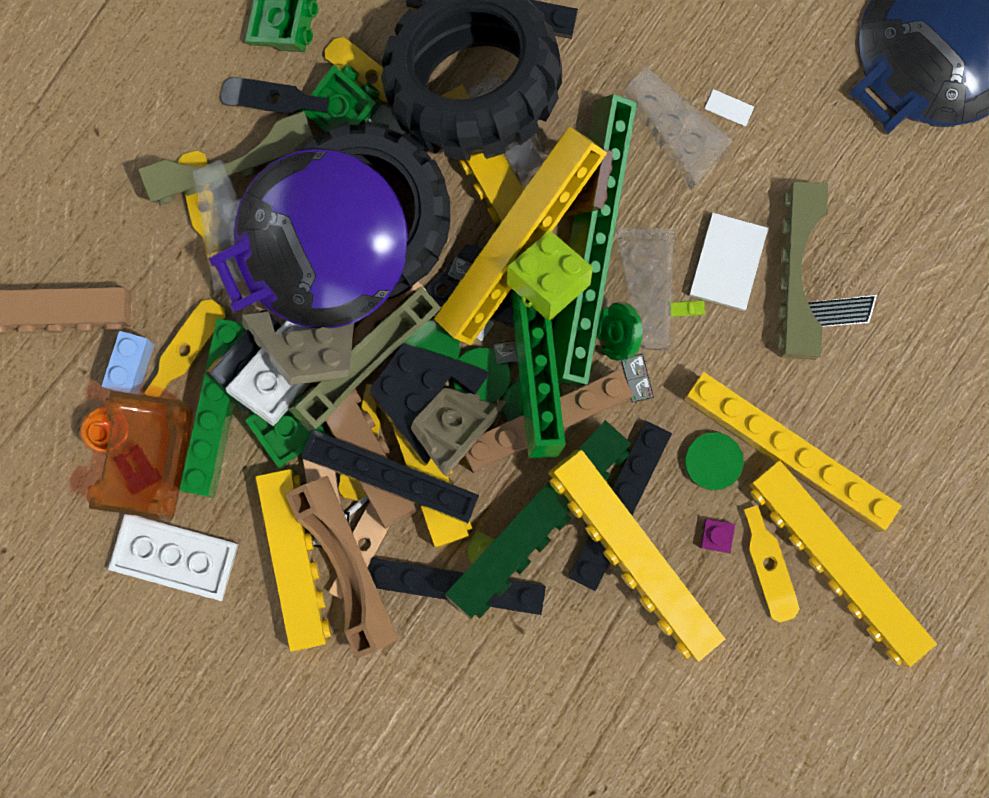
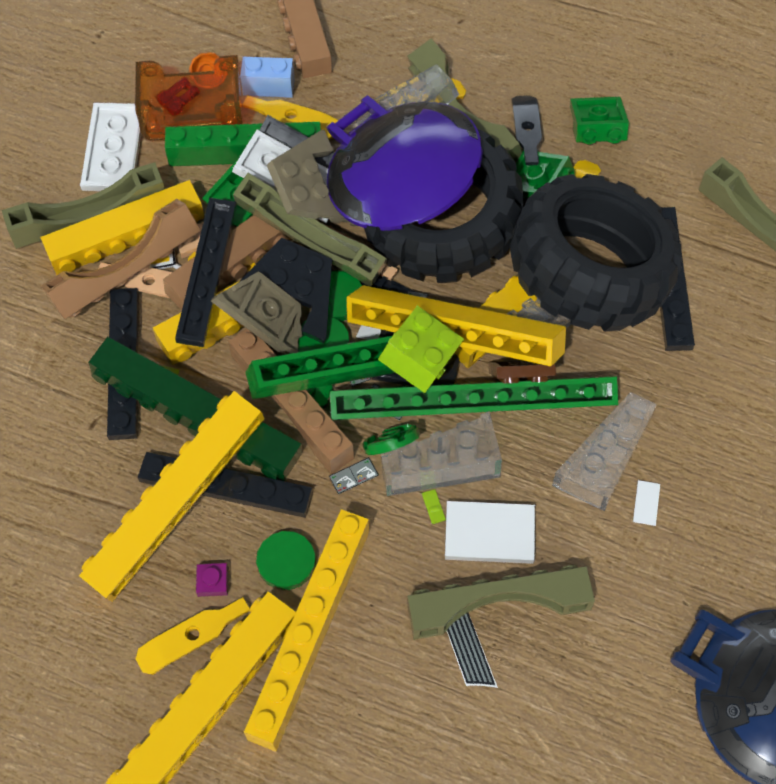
camera: 75 degrees right, 20 degrees down
(254, 566) = (33, 220): none -> olive arch

